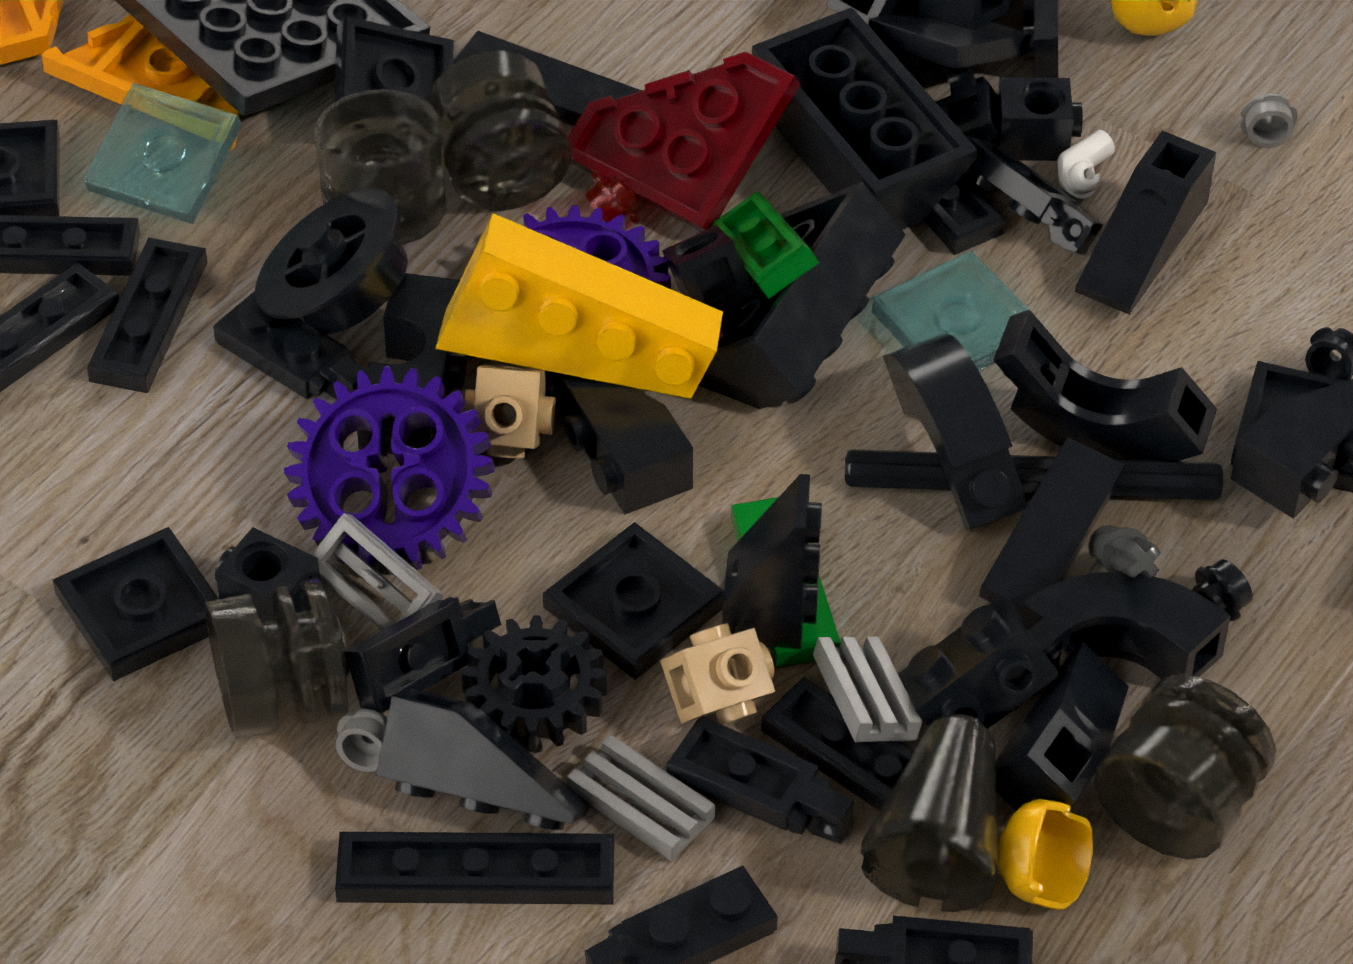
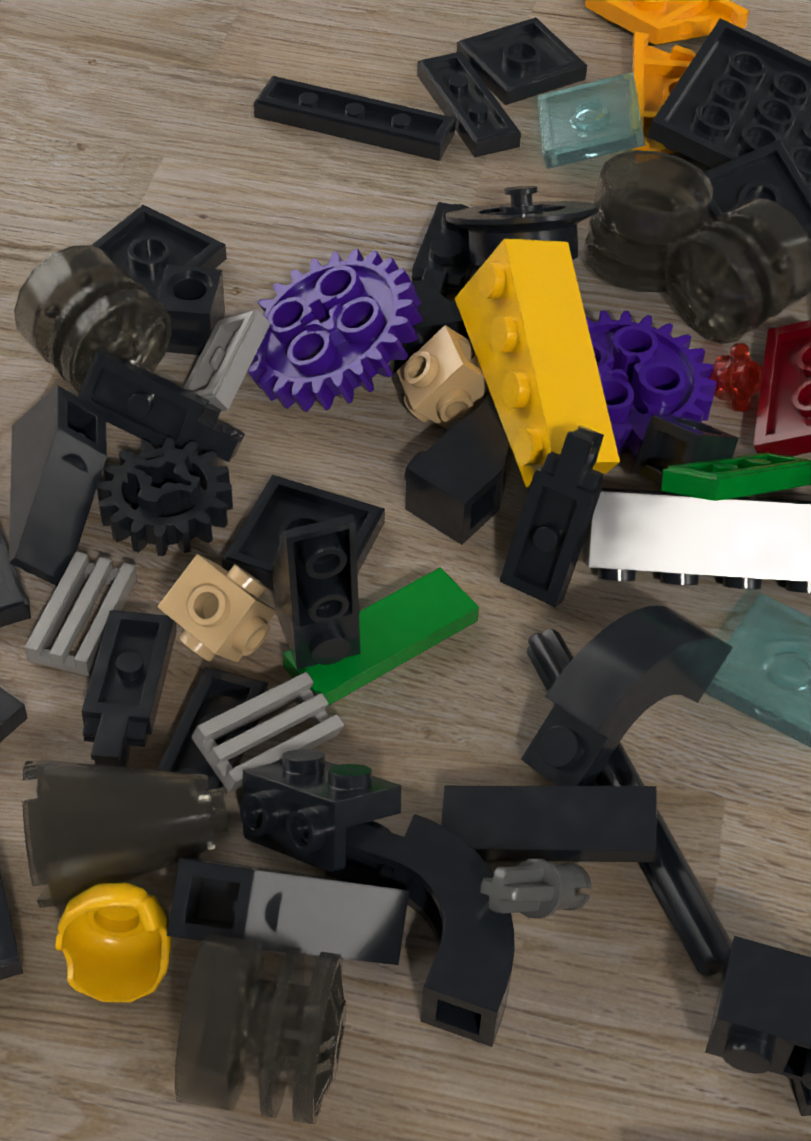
camera: 65 degrees right, 0 degrees up
(147, 315) = (435, 172): black tile -> none
(757, 386) = (555, 519): none -> black hinge
(1120, 418) = (737, 842): black arch -> none
(1224, 587) = (561, 1009): black plate -> none

